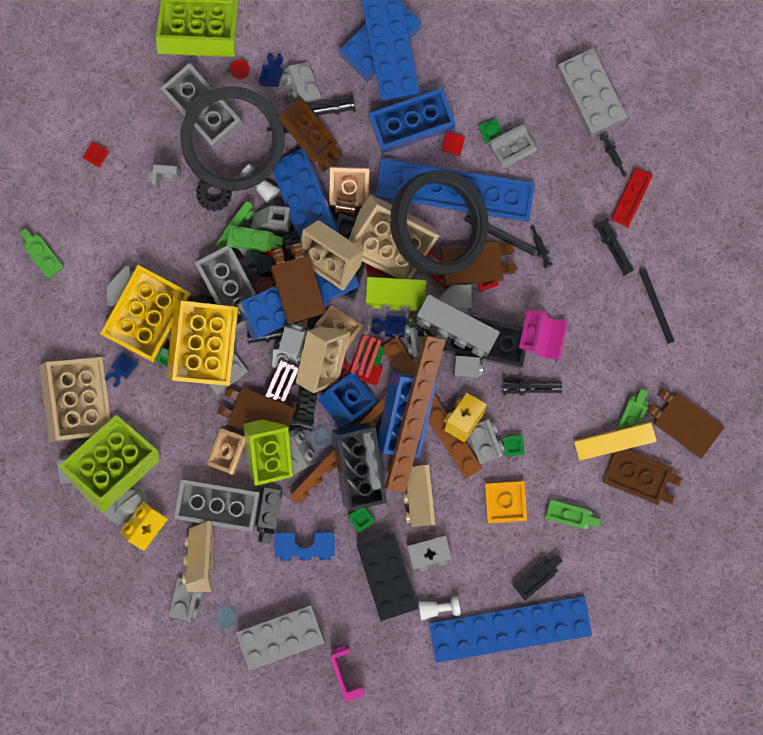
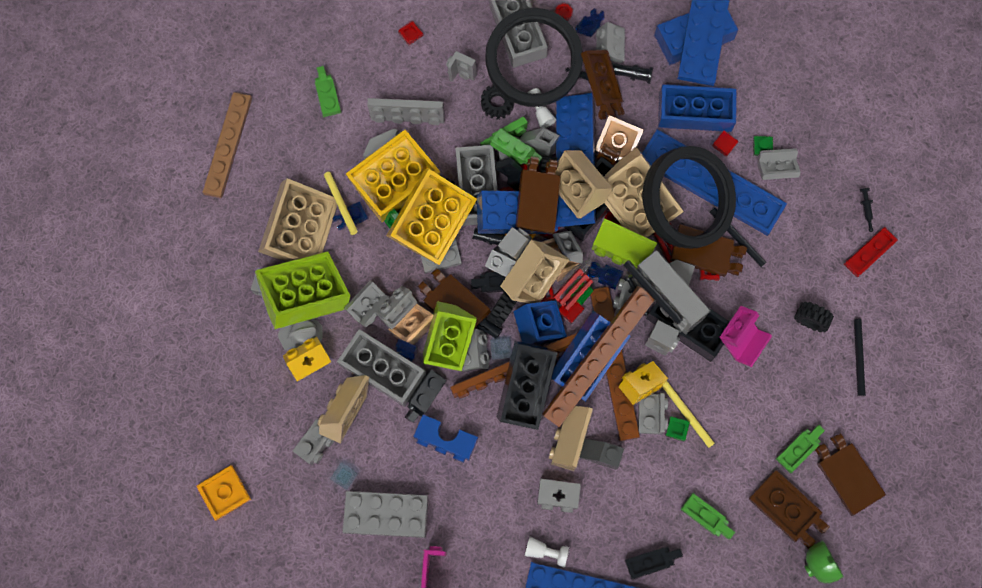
camera: 20 degrees right, 10 degrees down
(106, 361) = (340, 202): none -> light yellow bar
(122, 680) = (223, 492): none -> light orange tile
(125, 244) = (406, 110): none -> light grey plate
(177, 450) = (366, 304): none -> light grey bracket
(205, 441) = (396, 307): none -> light grey bracket
(233, 480) = (406, 349): none -> clear blue plate
(276, 396) = (477, 292): tile -> none
(343, 315) = (569, 246): none -> light grey slope
(361, 519) = (507, 436): green plate -> none
(387, 576) = (510, 500): black brick -> none
(441, 336) = (653, 292): none -> black bar
(452, 498) = (601, 453): none -> dark grey slope
(505, 502) = (649, 478): light orange plate -> none
(519, 428) = (688, 415): none -> light yellow bar
(521, 387) = (704, 378): black pin -> none
(541, 248) = (771, 267): black piece -> none
(591, 93) = (867, 147): light grey brick -> none
(600, 287) = (813, 316): none -> black tyre
(609, 238) = (840, 277): black pin -> none
(615, 441) = (777, 463): yellow tile -> none
(689, 515) = (821, 564): none -> bright green cylinder

